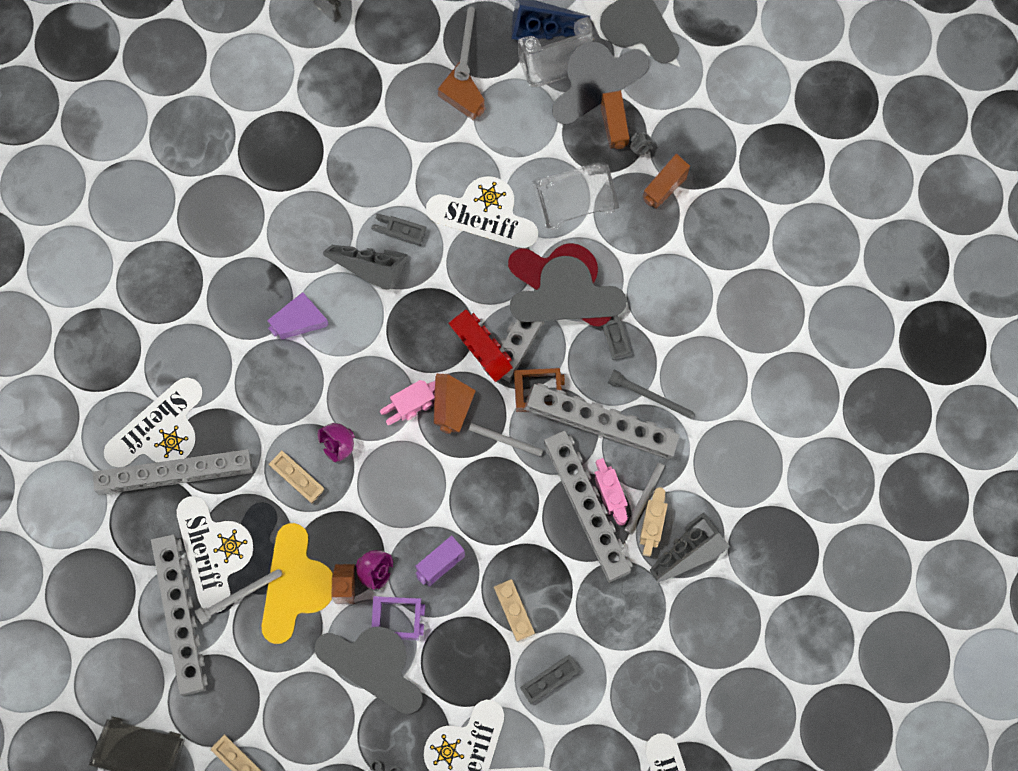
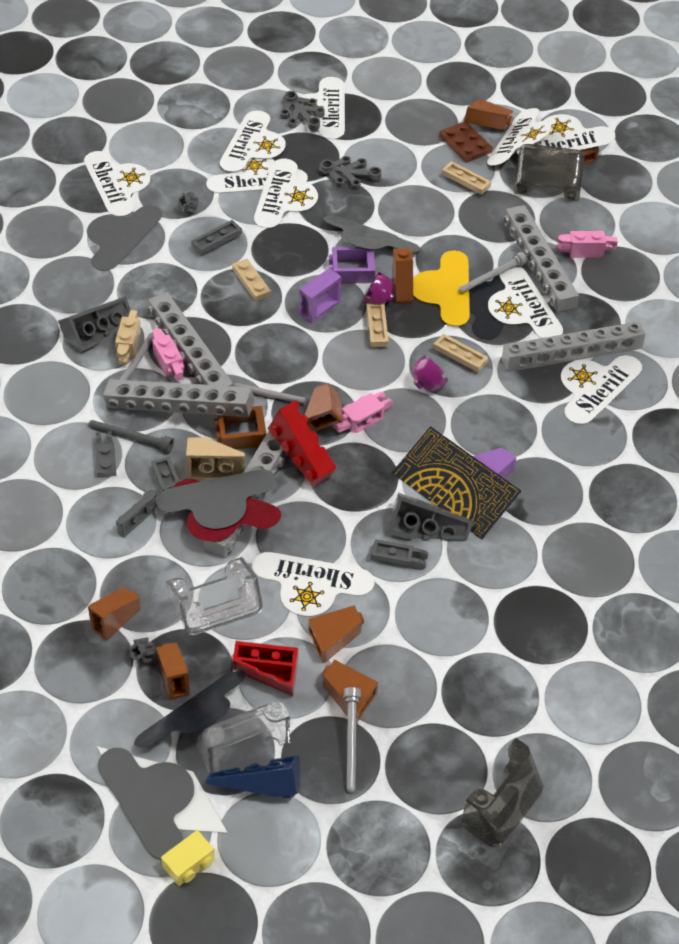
camera: 175 degrees right, 25 degrees down
(119, 630) = (586, 244): none -> bright pink hinge
(332, 302) = (456, 481): none -> black sticker
(381, 523) = (377, 325): none -> tan plate
(468, 150) = (334, 631): none -> dark orange slope
(532, 118) = (268, 664): none -> red wedge
(572, 341) = (212, 459): none -> tan slope
(581, 738) = (188, 202): none -> dark grey gear
(644, 295) = (137, 513): none -> dark grey hinge
(662, 701) = (120, 235): none -> dark grey sticker
(676, 370) = (105, 456): none -> dark grey hinge

